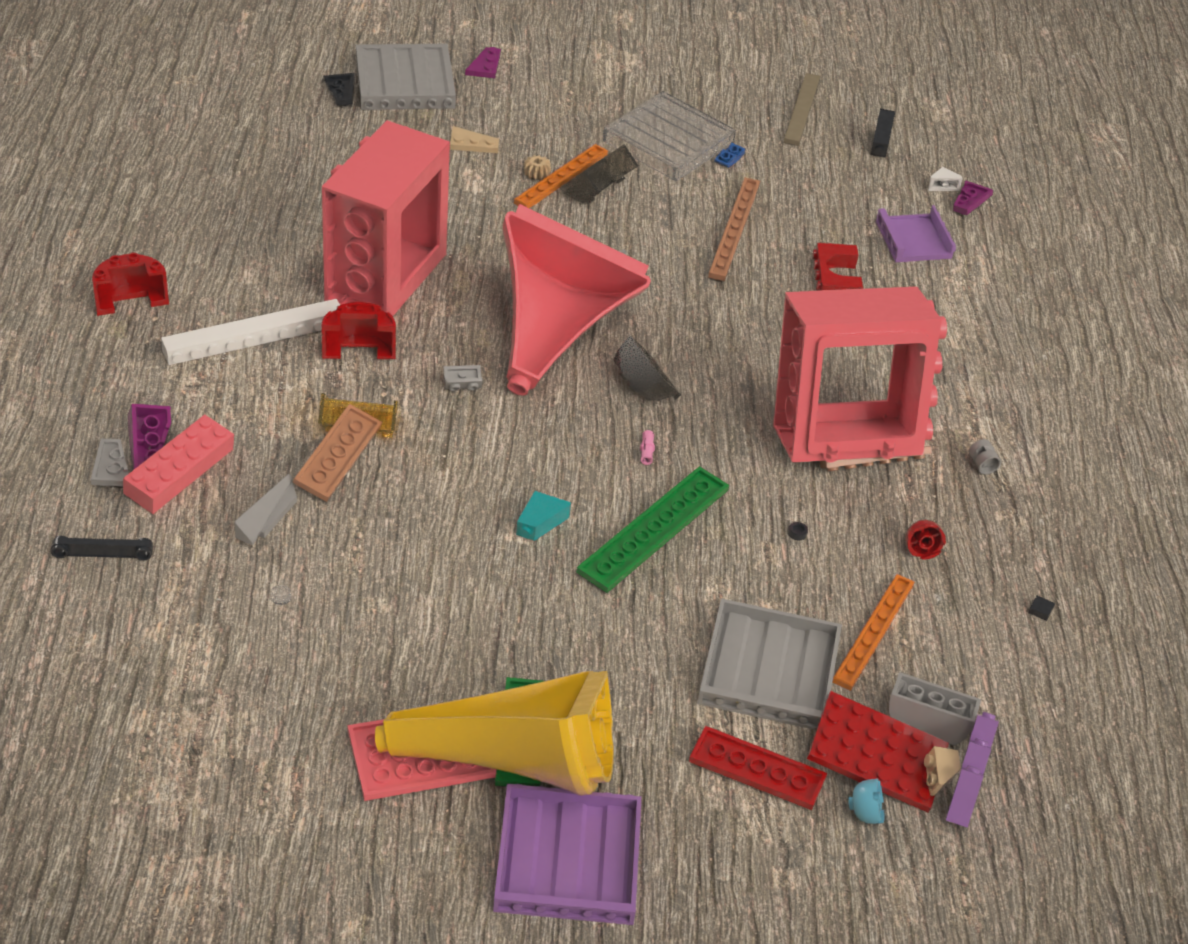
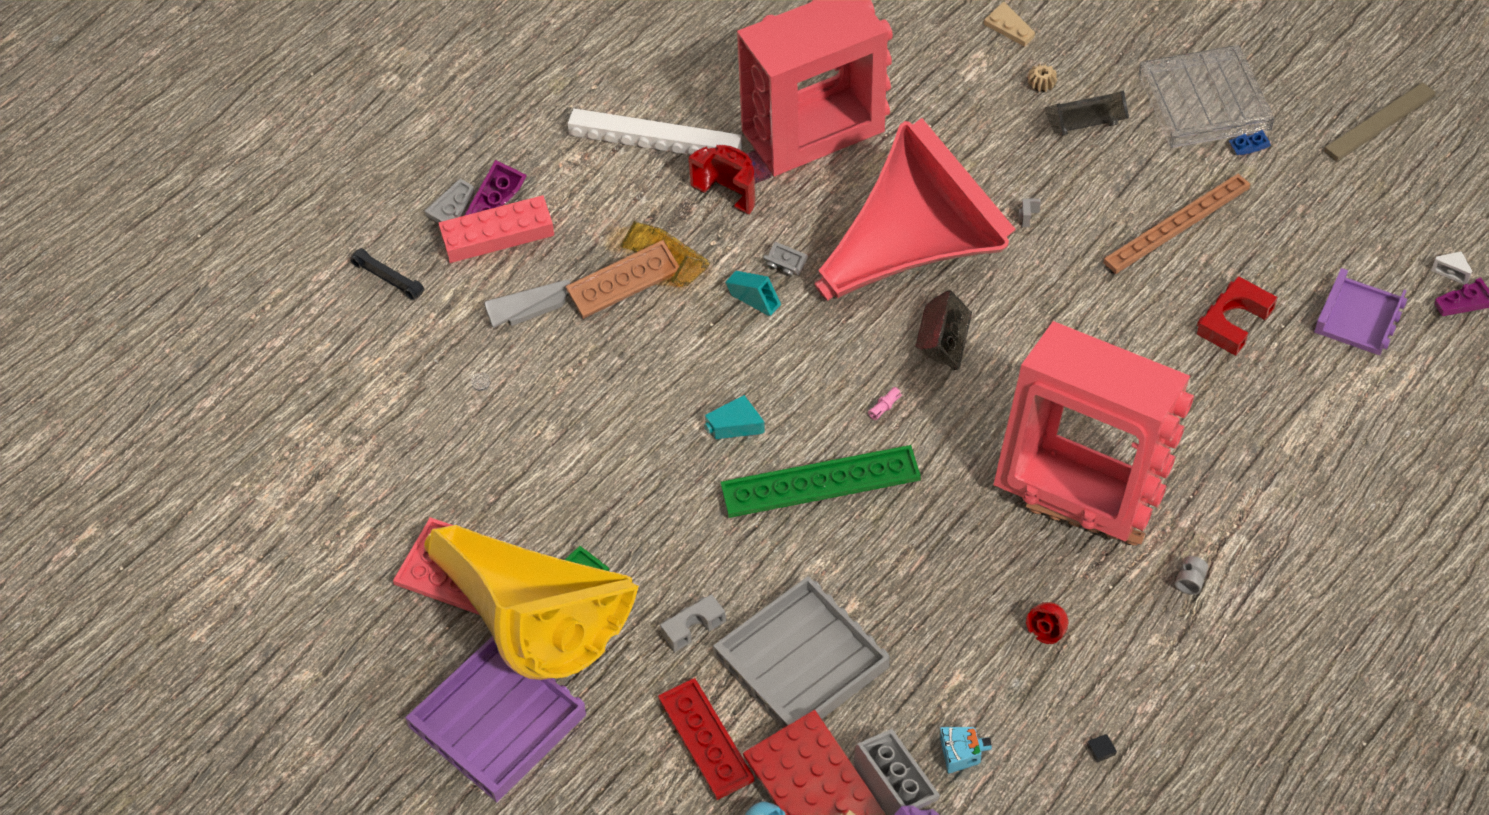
camera: 45 degrees right, 10 degrees up
(129, 278) = (587, 40): red cylinder -> none
(461, 411) = (754, 291): none -> teal slope
(561, 176) = (1060, 95): orange tile -> none
(655, 698) = (704, 612): none -> light grey arch
(797, 531) = (946, 551): black tile -> none
(873, 632) = (923, 680): orange tile -> none
(882, 133) = (1432, 186): black slope -> none
(951, 661) = (962, 747): none -> medium azure torso

